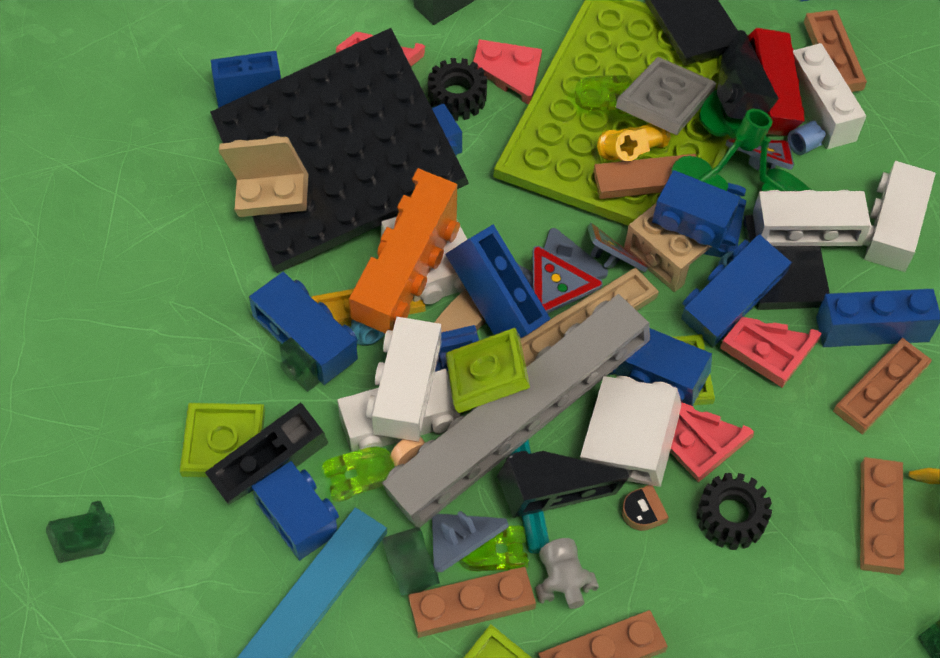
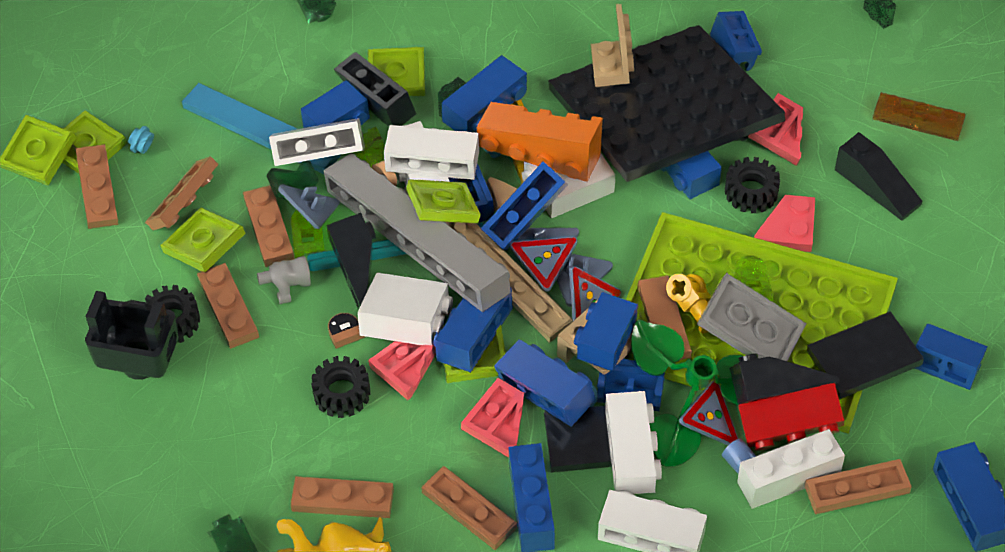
camera: 90 degrees right, 5 degrees down
(366, 520) = (317, 142): none -> white brick

